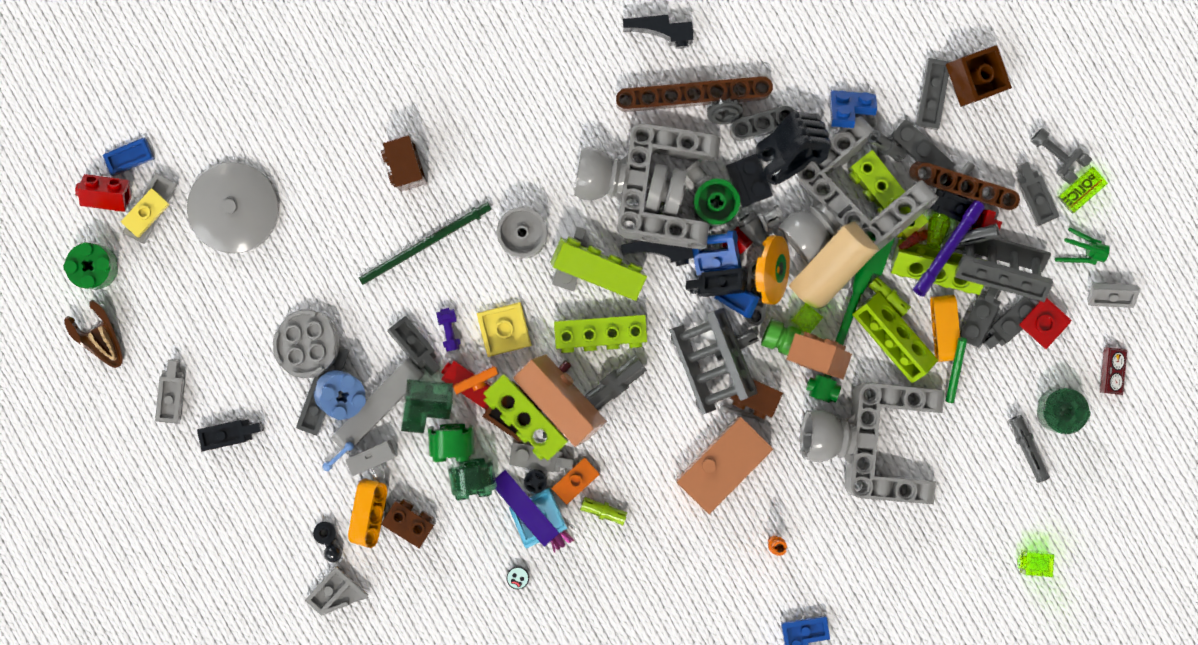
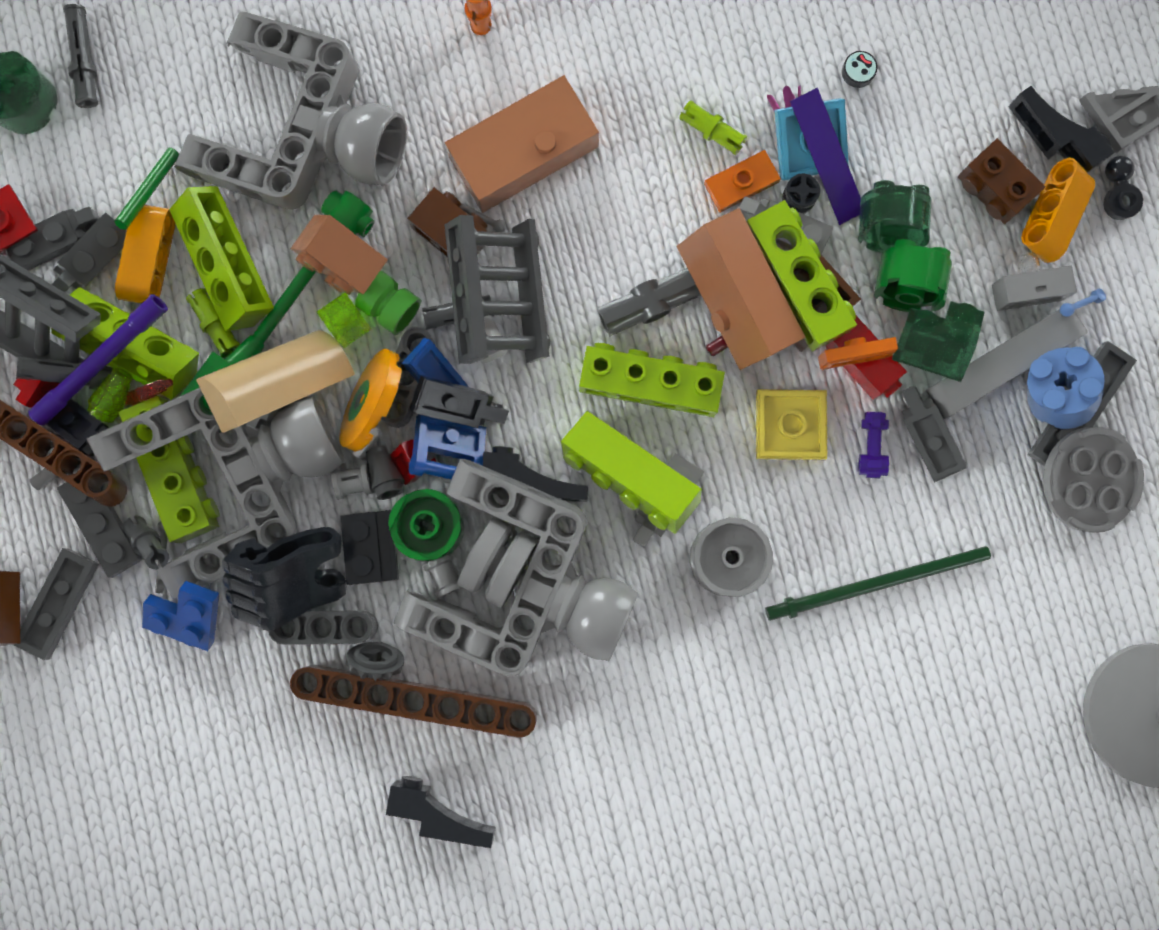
camera: 165 degrees left, 5 degrees down
(360, 560) = (1058, 134): none -> black slope
(404, 163) = (886, 712): reddish brown brick -> none

